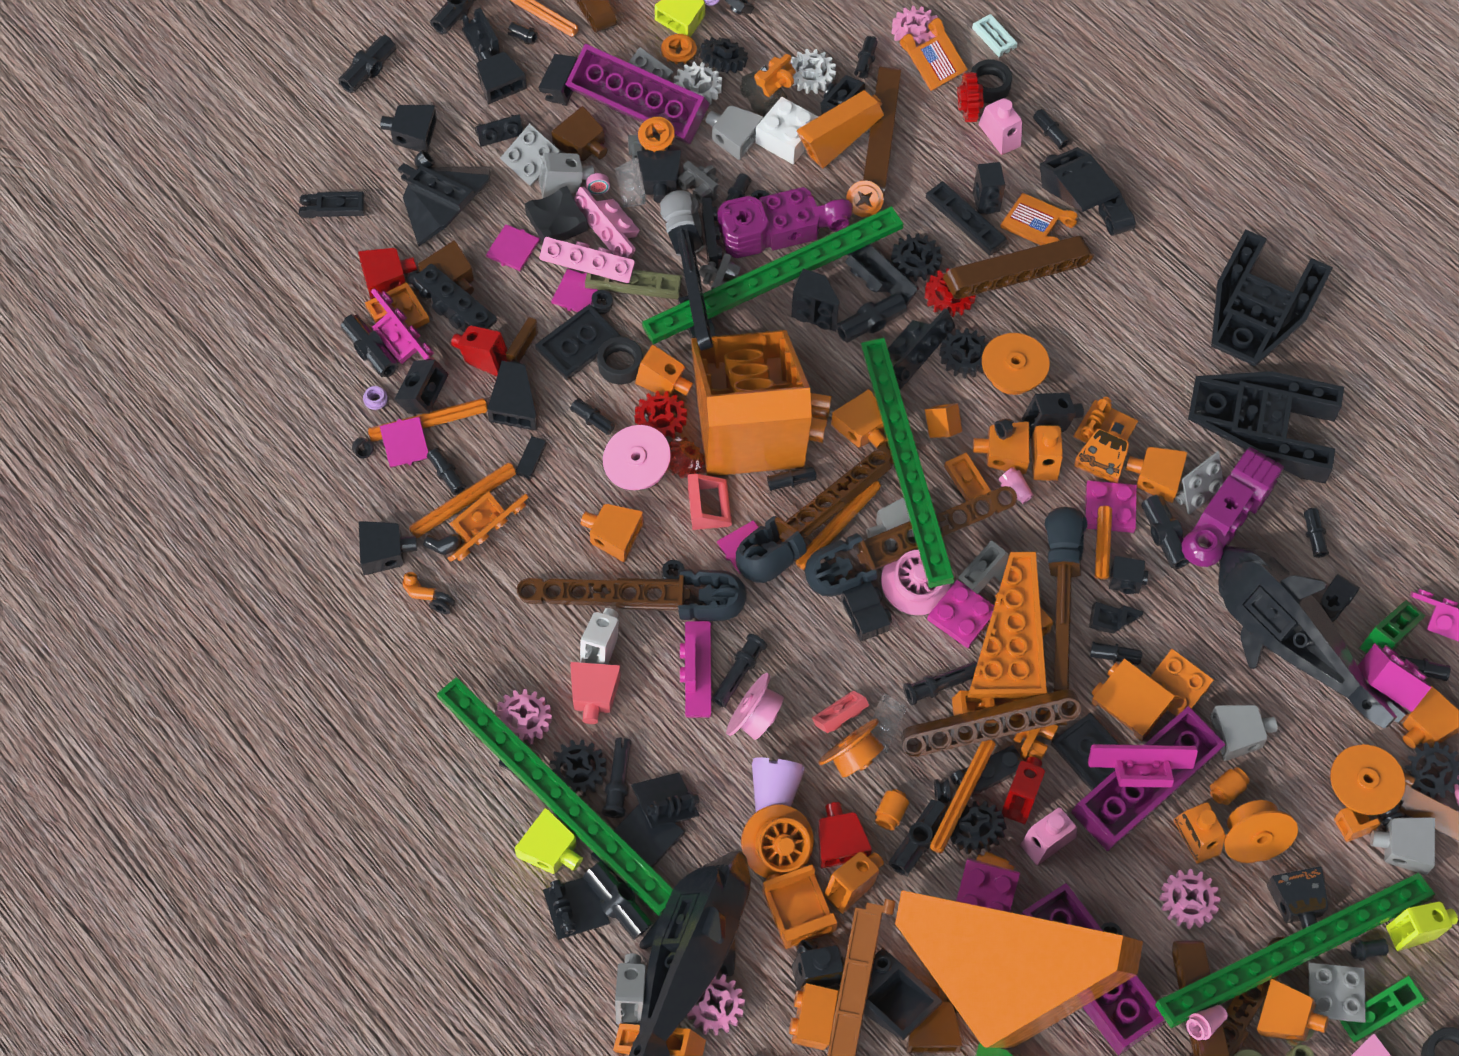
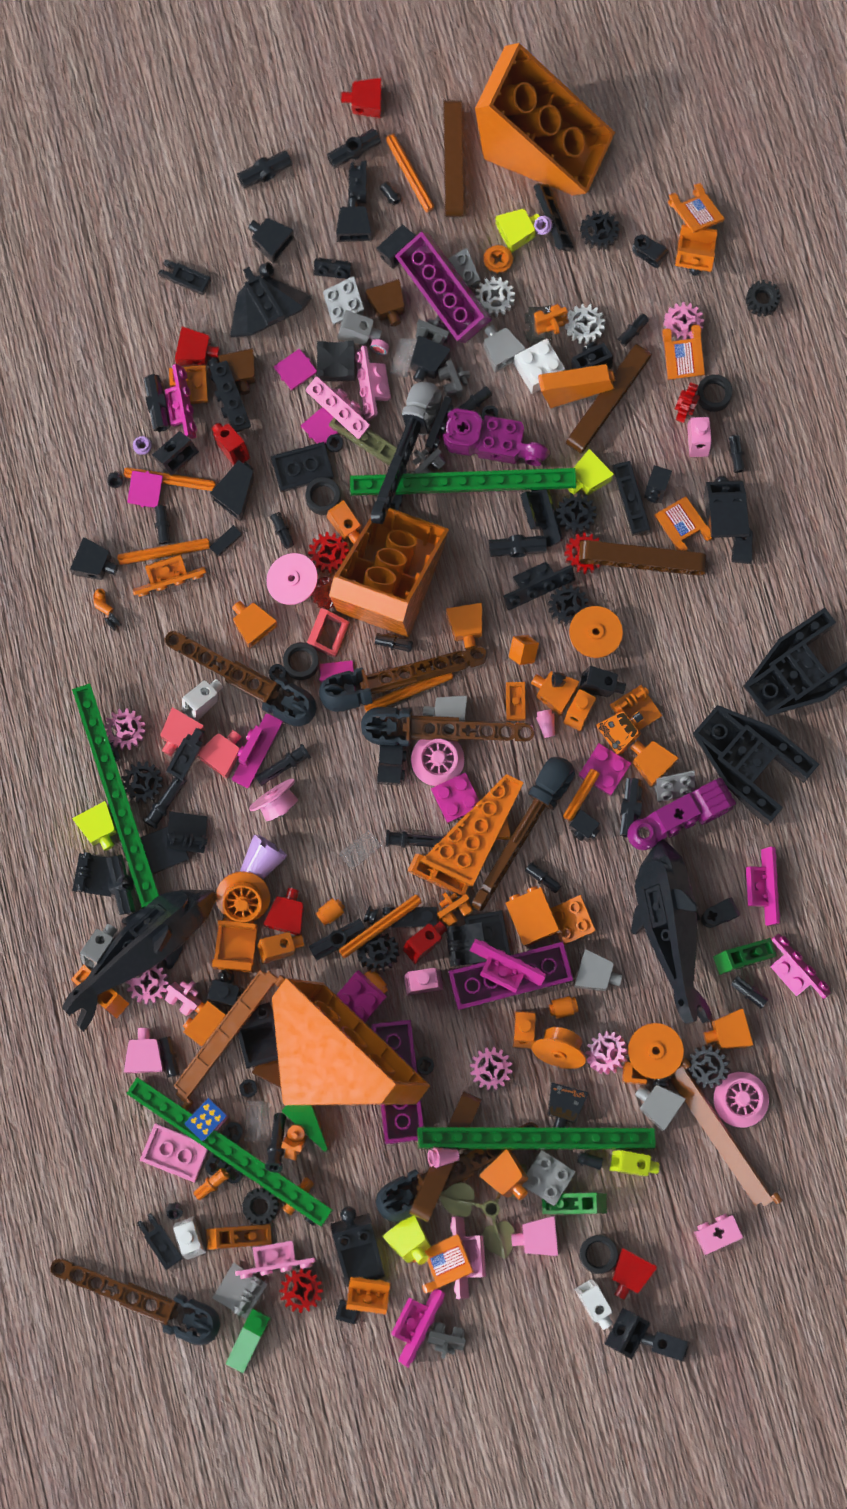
camera: 30 degrees right, 15 degrees up
(445, 545) = (134, 579): black arm -> none
(522, 341) = (262, 450): reddish brown tile -> none
(618, 707) = (186, 754): none -> black hinge
(656, 690) = (221, 753): none -> coral torso
(661, 126) = (431, 323): orange gear -> none
(695, 528) = (301, 646): none -> black tyre
(723, 55) = (526, 281): black gear -> none
(781, 1001) = (186, 994): none -> bright pink hips
(815, 301) = (479, 514): black slope -> none
(820, 412) = (435, 607): orange leg -> none
(840, 711) = (334, 827): coral plate -> none
(855, 750) = (324, 860): orange piece -> none
(865, 209) = (561, 455): orange gear -> none
(907, 464) = (472, 672): green plate -> none
(912, 209) = (591, 474): none -> neon yellow torso
(988, 564) = (485, 774): dark grey slope -> none
(991, 36) = (744, 369): light aqua tile -> none
(1003, 727) = (435, 891): reddish brown beam -> none
(1070, 771) = (460, 942): none -> black hinge
(1112, 619) = (556, 850): black slope -> none
(1314, 800) = (614, 1054): none -> bright pink gear
(1316, 533) = (736, 859): black axle -> none
(1366, 546) = (763, 886): none -> dark pink bracket
(1394, 676) = (716, 991): dark pink brick -> none

